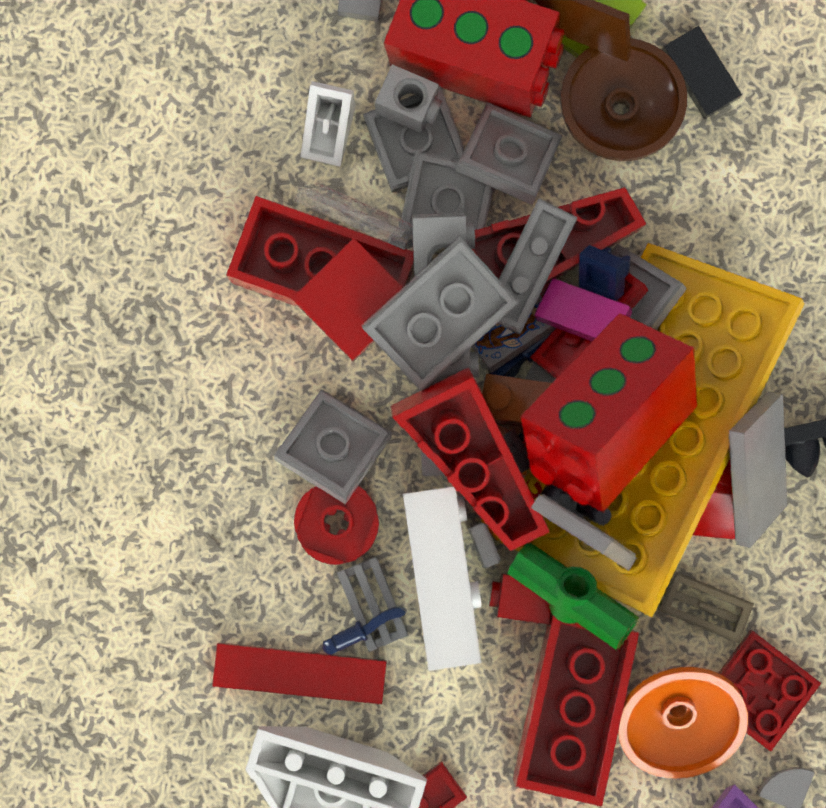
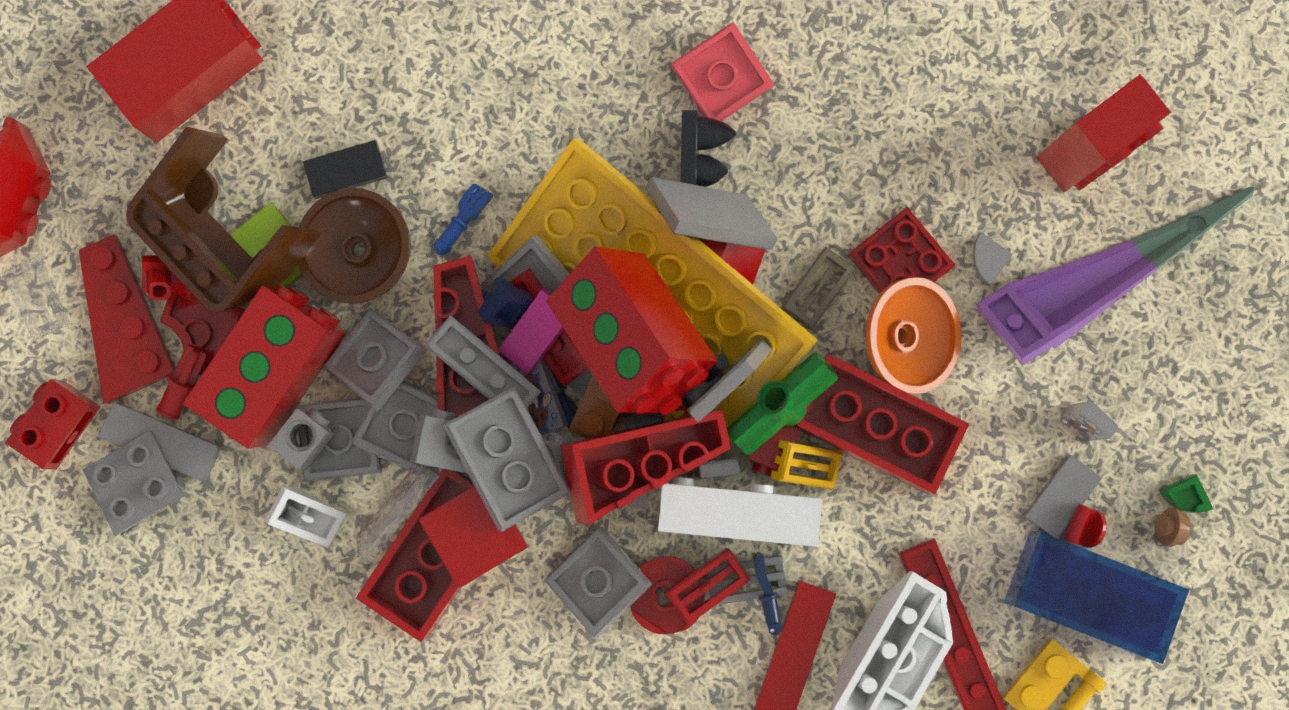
camera: 75 degrees left, 0 degrees up
(329, 538) = (679, 605): none -> red tile
(512, 615) = (787, 460): none -> yellow tile
(695, 212) = (469, 208): none -> blue piece

